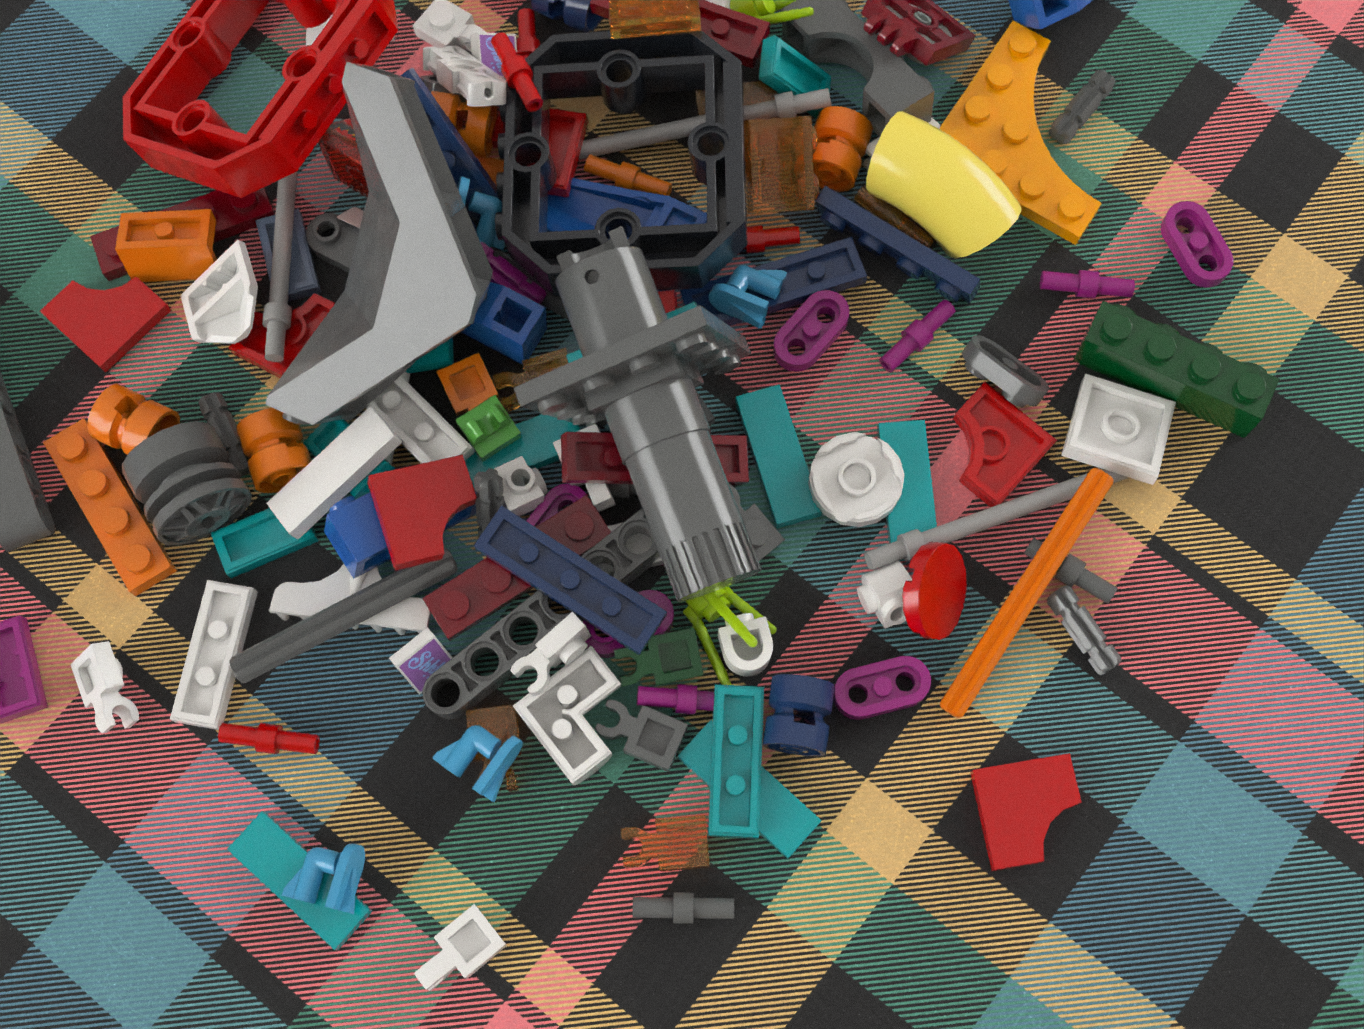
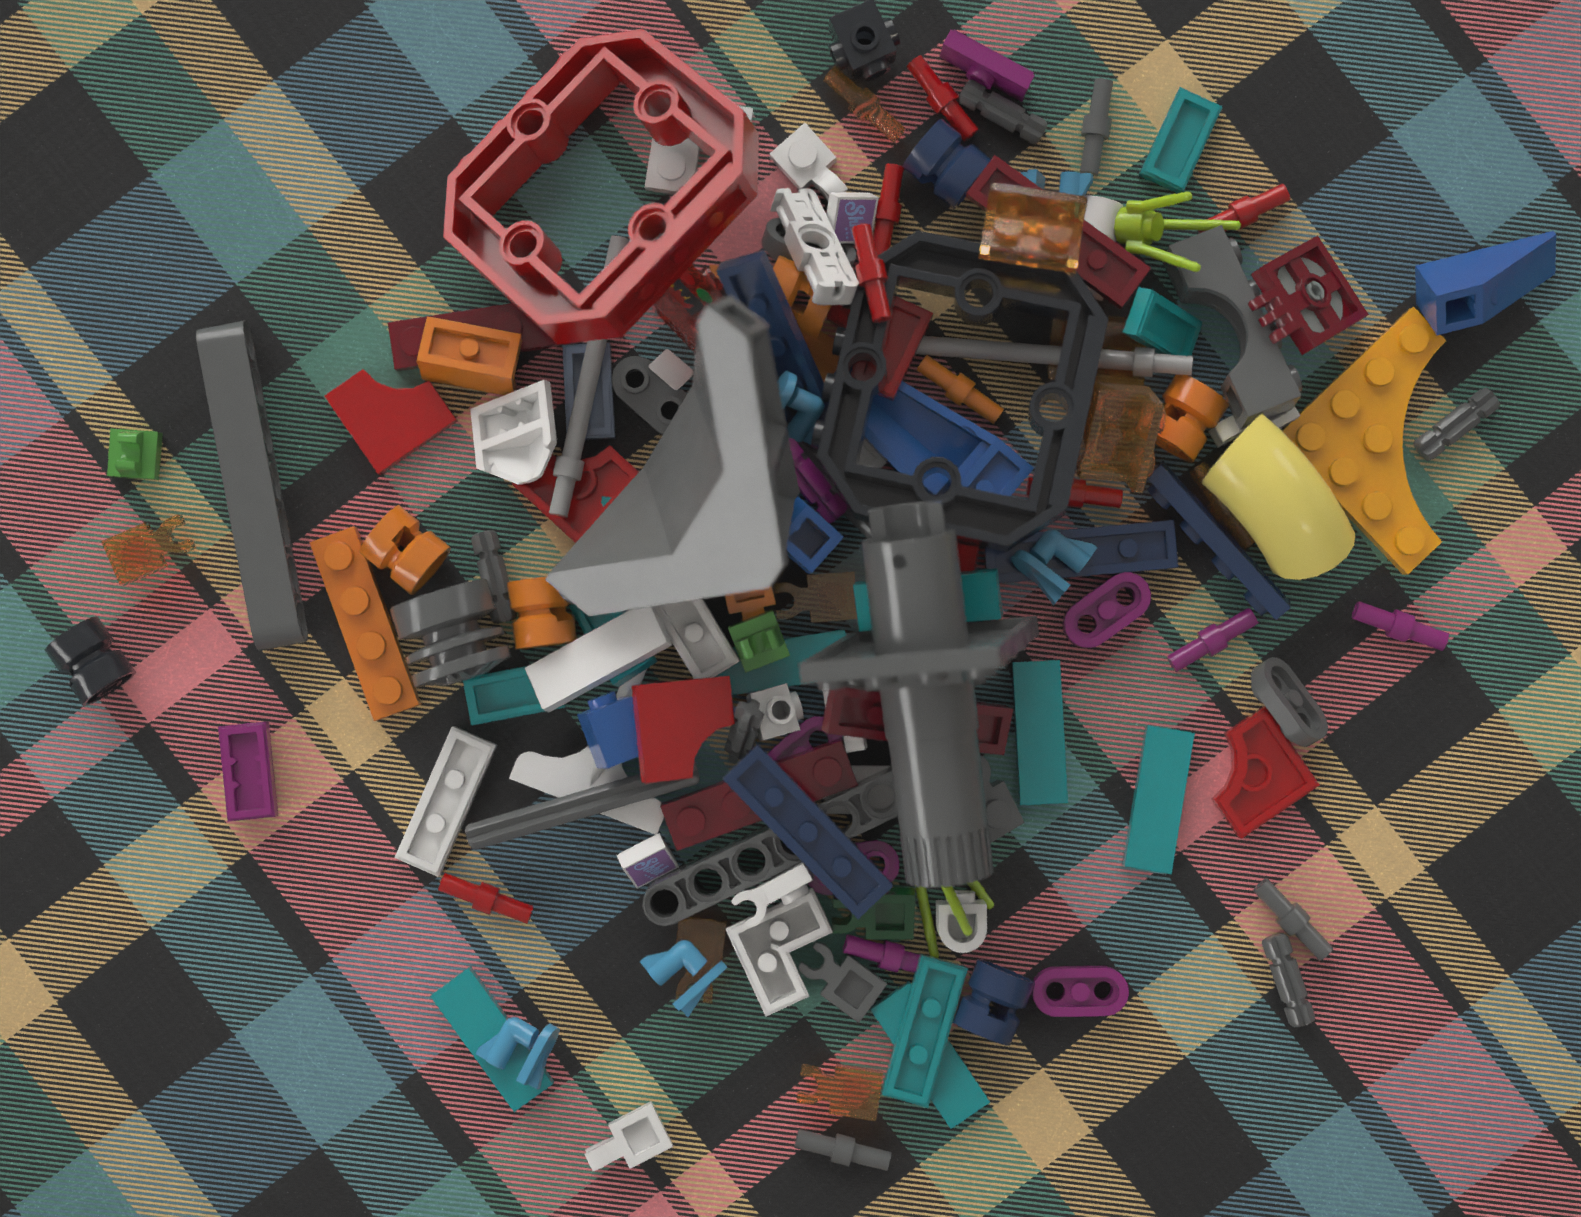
camera: 10 degrees right, 15 degrees up
(99, 680) = (333, 807): white plate -> none
(856, 479) = (1109, 781): white tile -> none
(883, 591) = (1111, 903): white plate -> none
(909, 542) = (1149, 863): light grey bar -> none
(936, 592) = (1158, 916): red tile -> none
(1020, 803) = (1179, 1129): red tile -> none
(1026, 593) = (1244, 934): orange axle -> none
(1119, 429) = (1384, 789): white tile -> none
(1176, 369) = (1458, 744): dark green brick -> none
(1200, 245) = (1529, 610): magenta plate -> none

